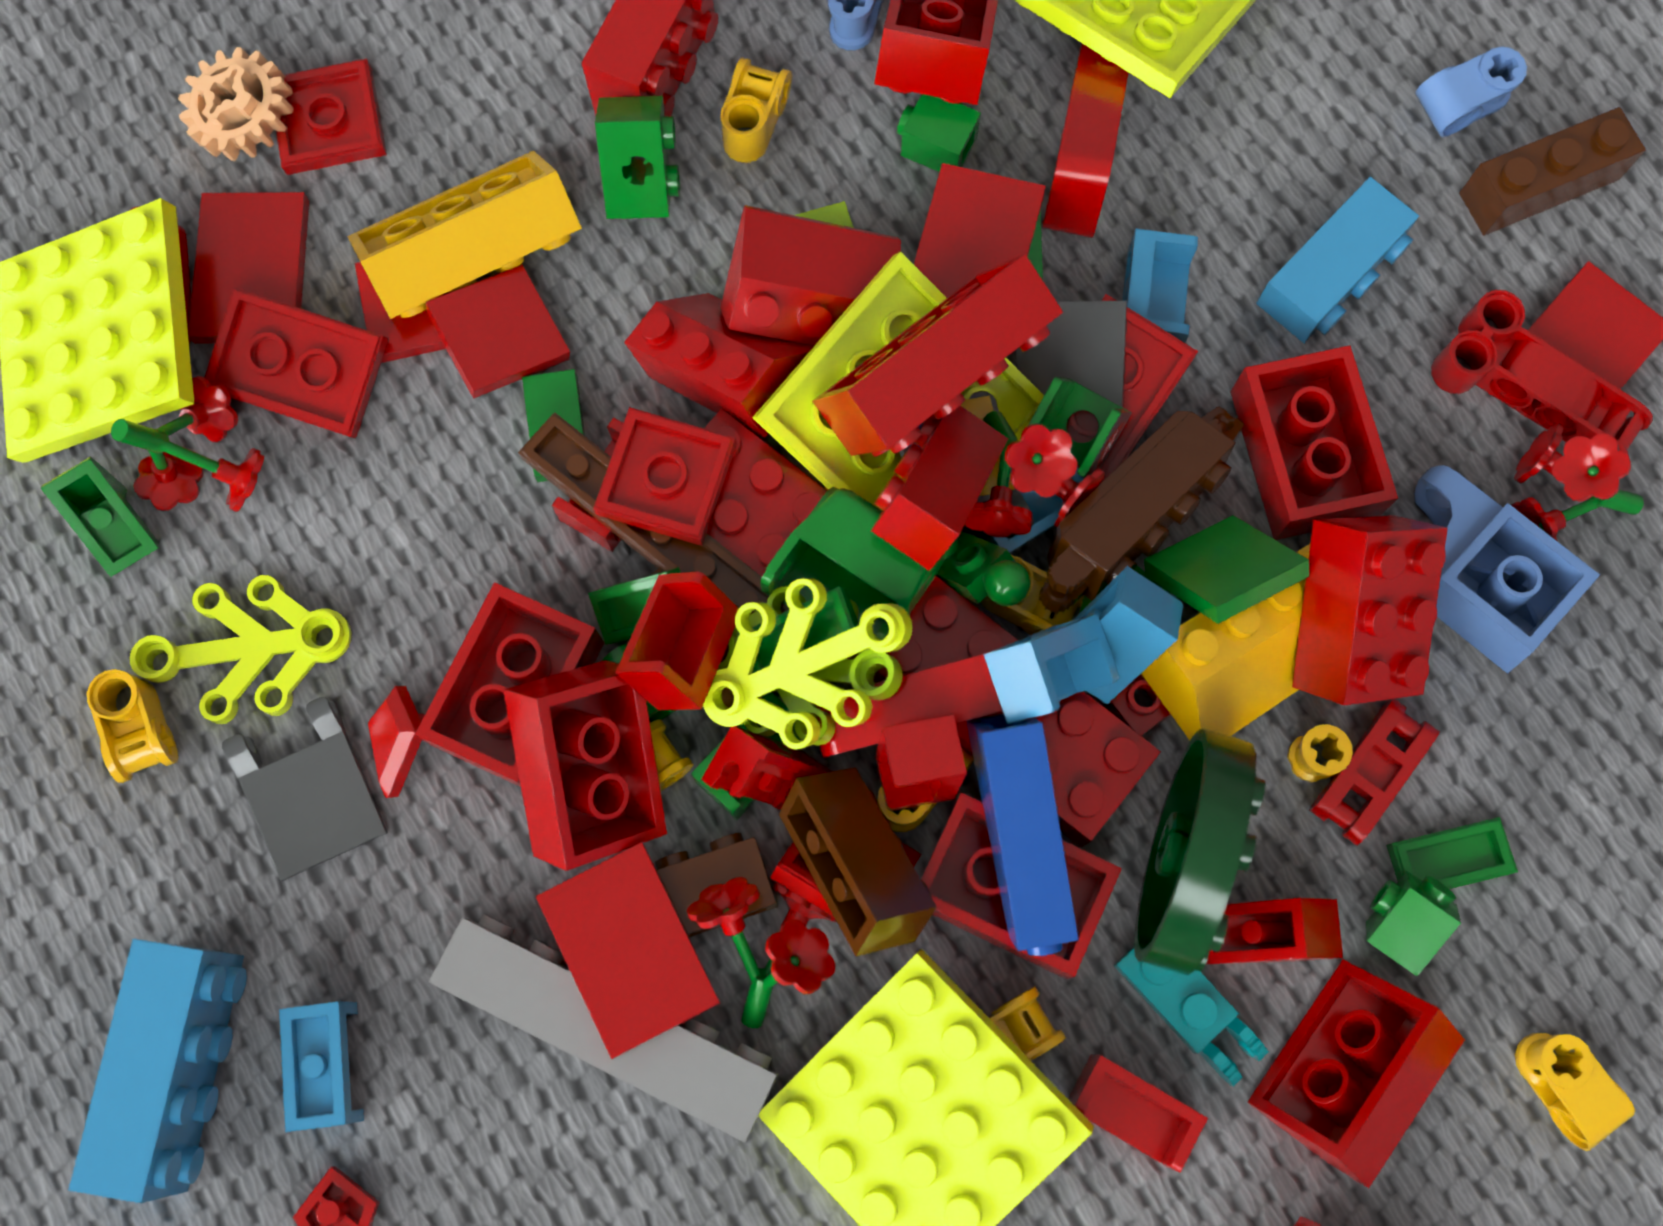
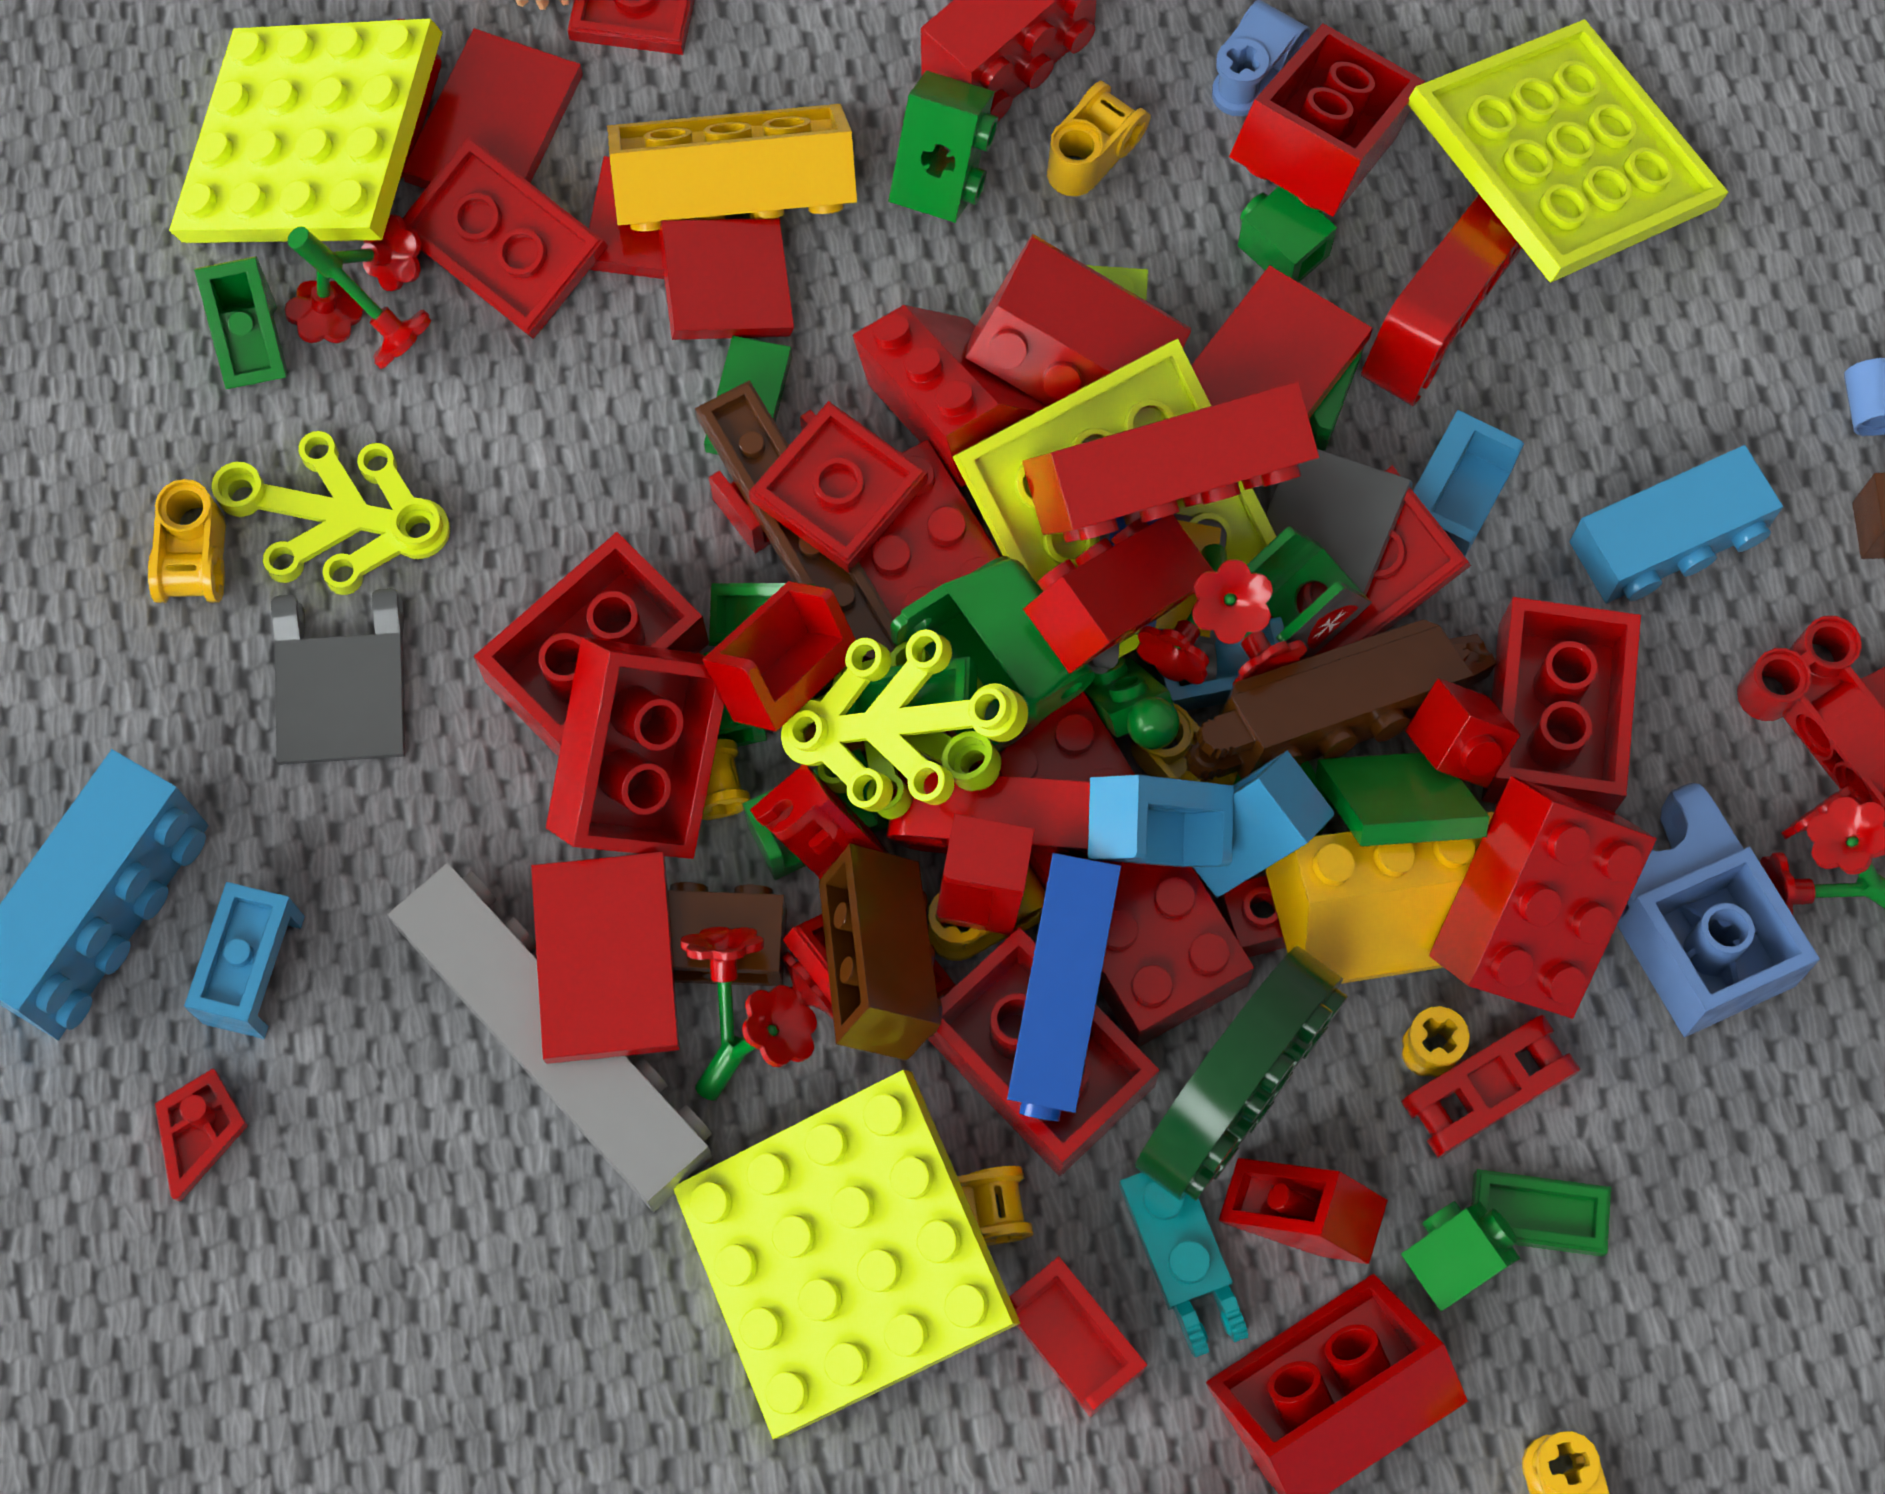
camera: 20 degrees right, 5 degrees down
(394, 739) = (449, 661): red piece -> none
(1250, 495) = (1462, 733): none -> red brick

